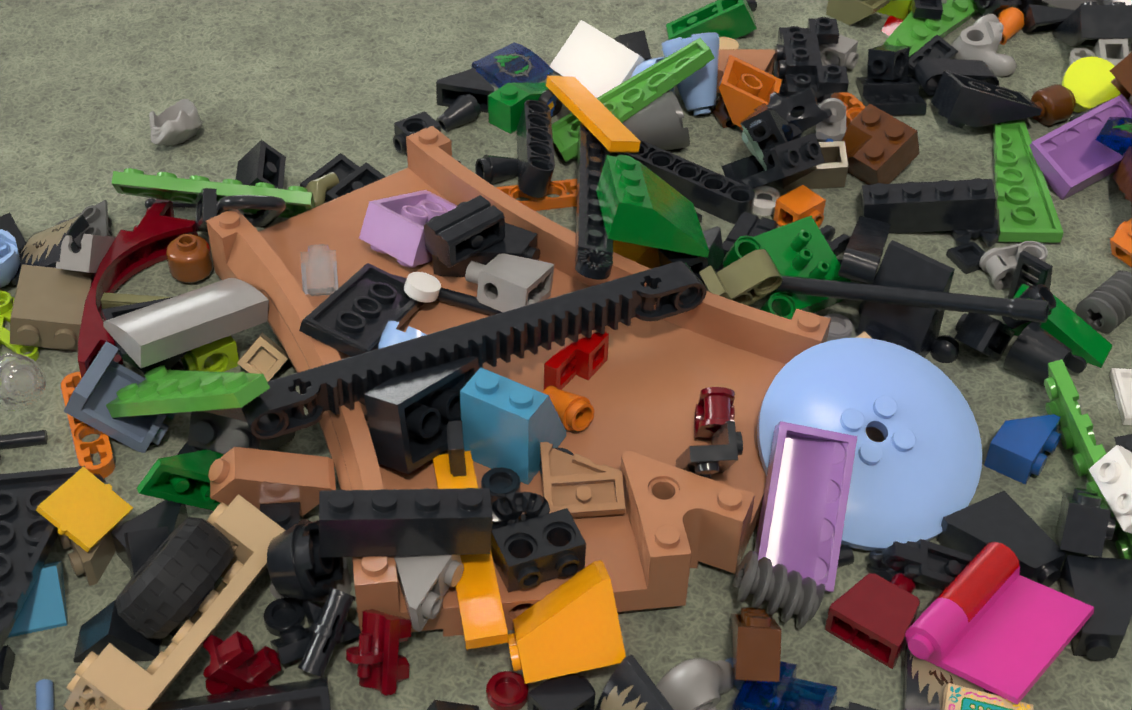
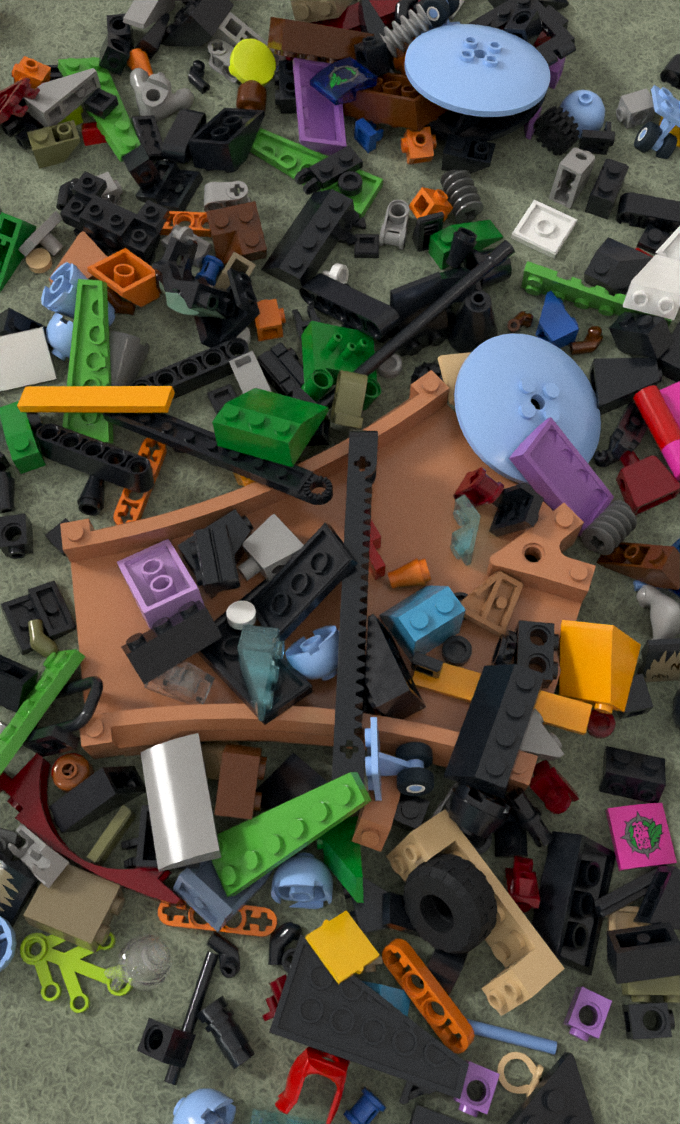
camera: 60 degrees left, 25 degrees up
(48, 449) = (228, 954): none -> black arm
(63, 631) = (431, 993): none -> orange beam
(140, 454) = (304, 881): none -> light blue cylinder
(166, 273) = (96, 797): none -> black slope
(234, 343) = (238, 781): none -> reddish brown slope
(303, 430) = (408, 765): none -> plate
(355, 232) = (171, 641): none -> black slope
(358, 296) = (258, 657): none -> clear light blue slope
(482, 302) = (304, 582): none -> black tile
(655, 436) = (464, 538): none -> clear light blue slope
(717, 210) = (249, 373): none -> light grey slope
(748, 32) = (44, 237): none -> light grey tile
(908, 238) = (338, 272): none -> white tile
(927, 131) = (224, 194): none -> light grey piece
(955, 353) = (472, 322): none -> black cone
(991, 414) = (521, 319): none -> reddish brown arm
(1026, 185) = (328, 170): none -> black hinge
(1027, 207) = (350, 183): none -> black tile
(1031, 497) = (590, 342): none -> reddish brown arm
(1040, 65) = (196, 76): none -> black arm
(1071, 278) = (430, 202): none -> orange brick
(1110, 203) = (367, 135): none -> blue tile

